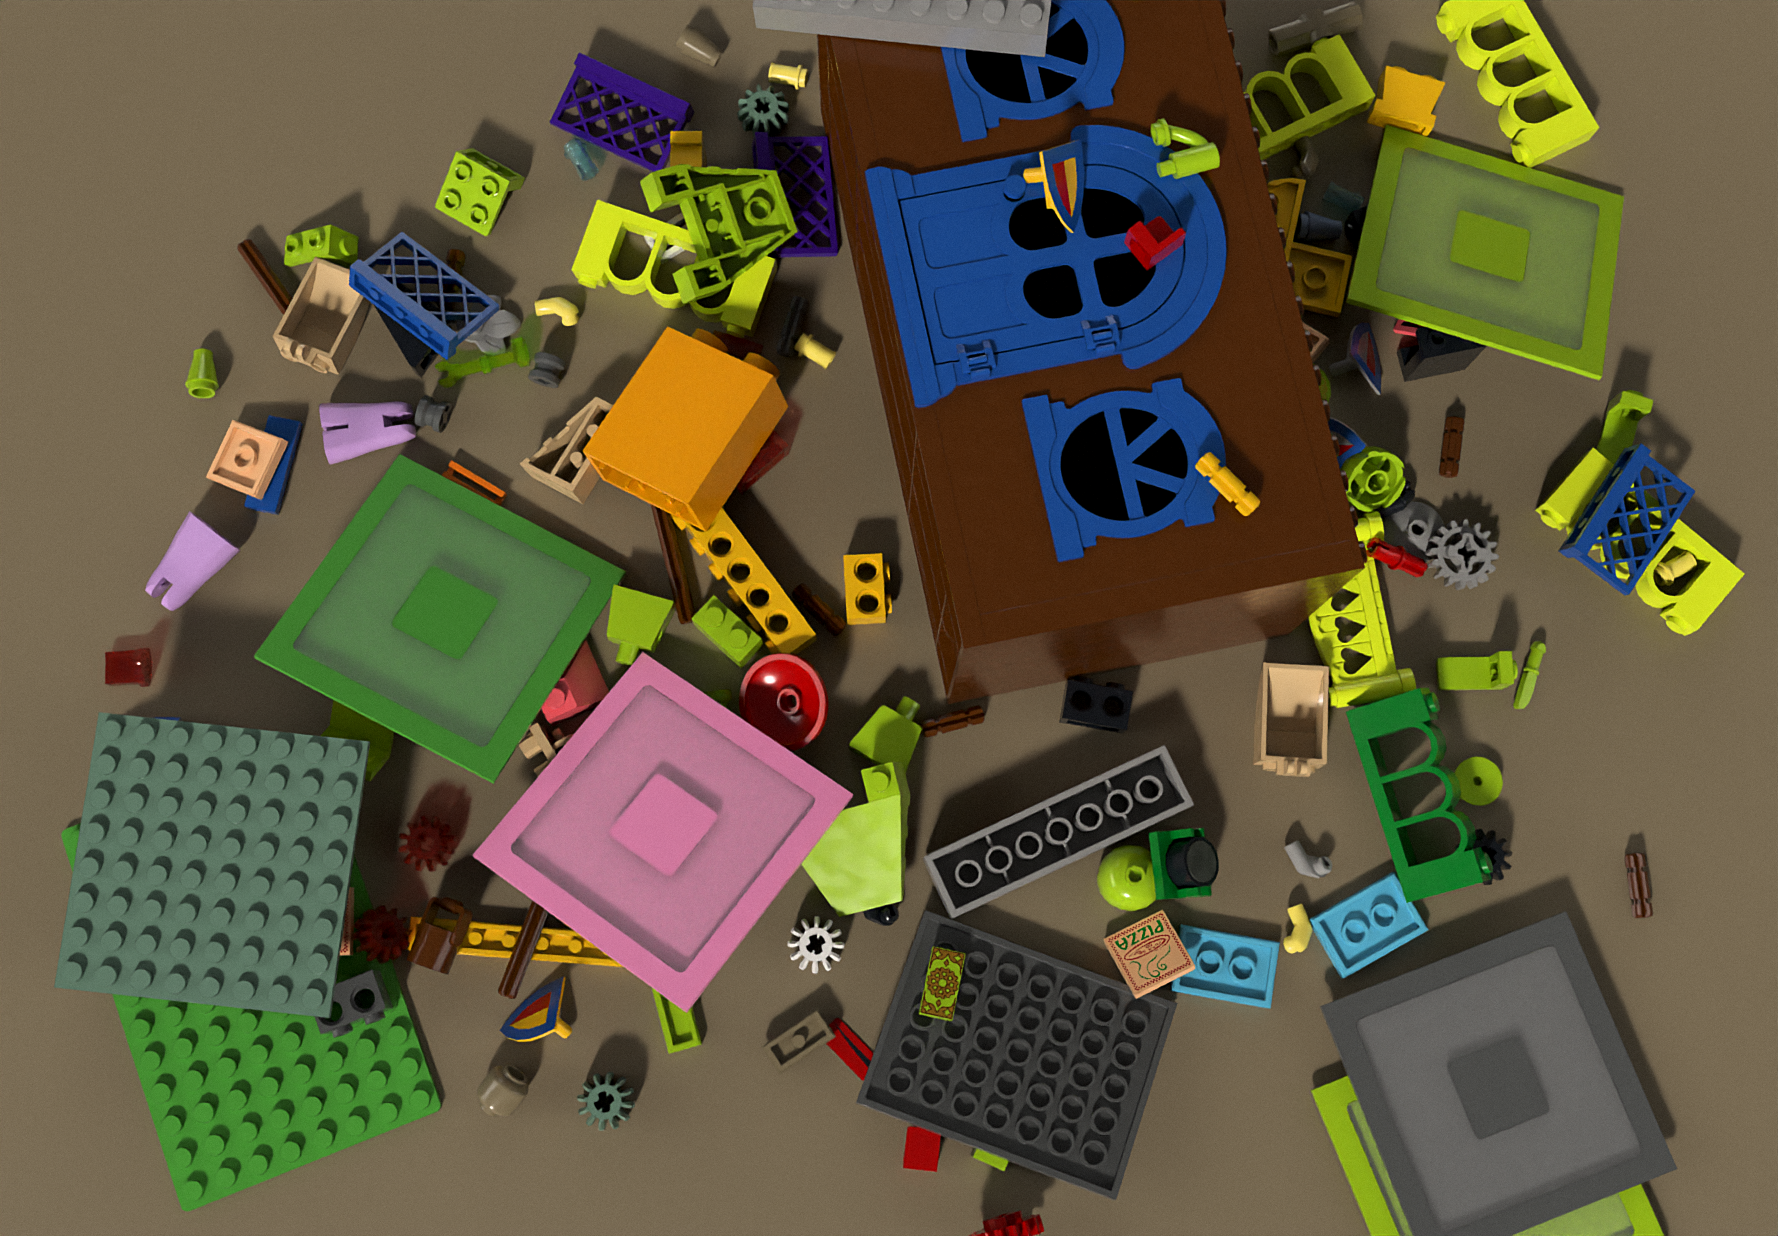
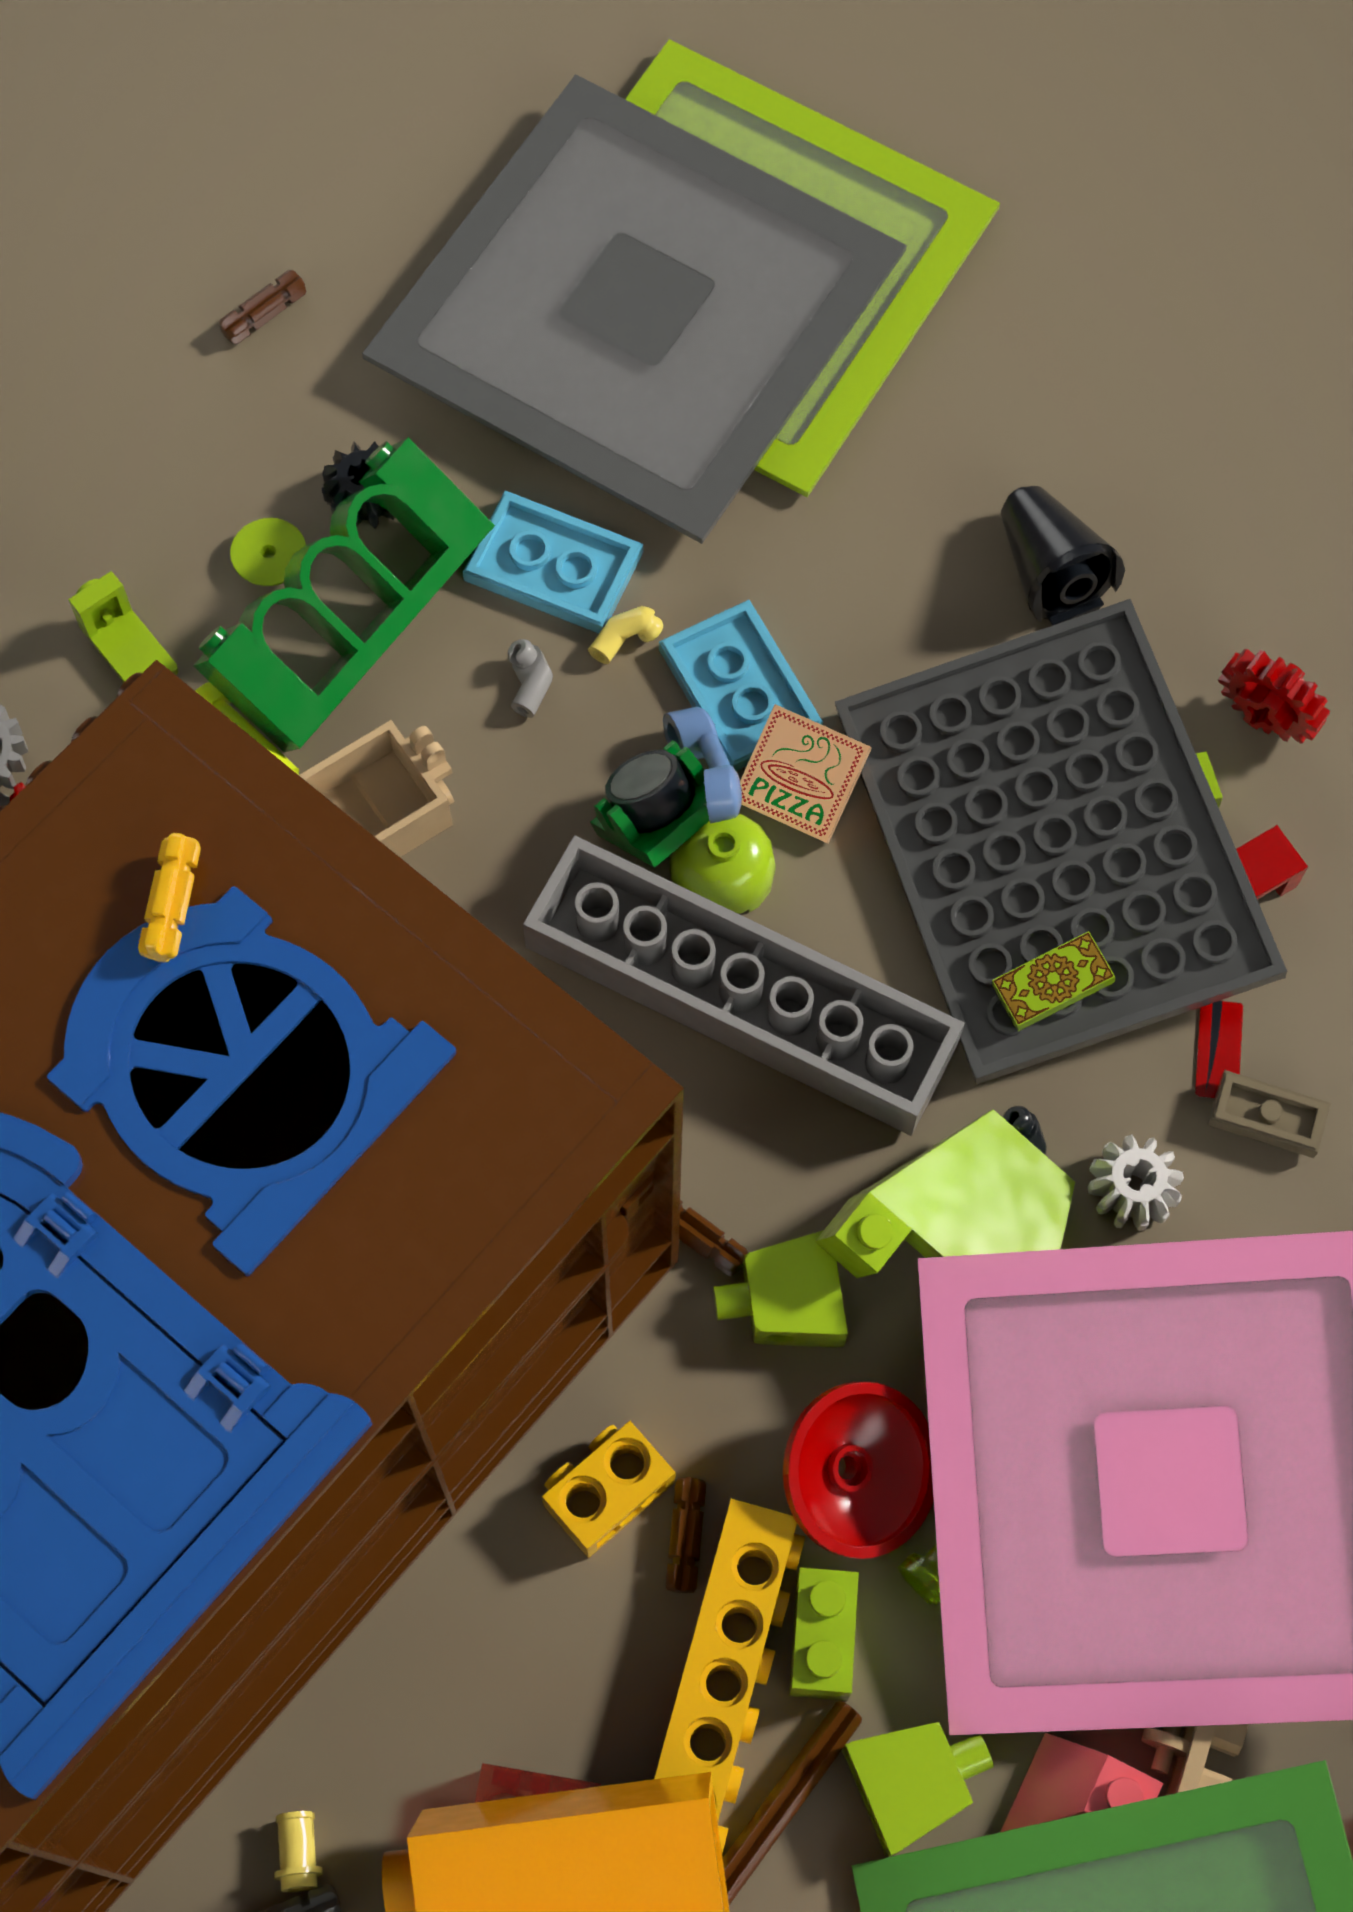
camera: 125 degrees left, 10 degrees down
(1175, 1190) = (1058, 556): none -> black cone
(1207, 916) = (697, 731): none -> medium blue piece
(1530, 675) = (70, 582): lime piece -> none

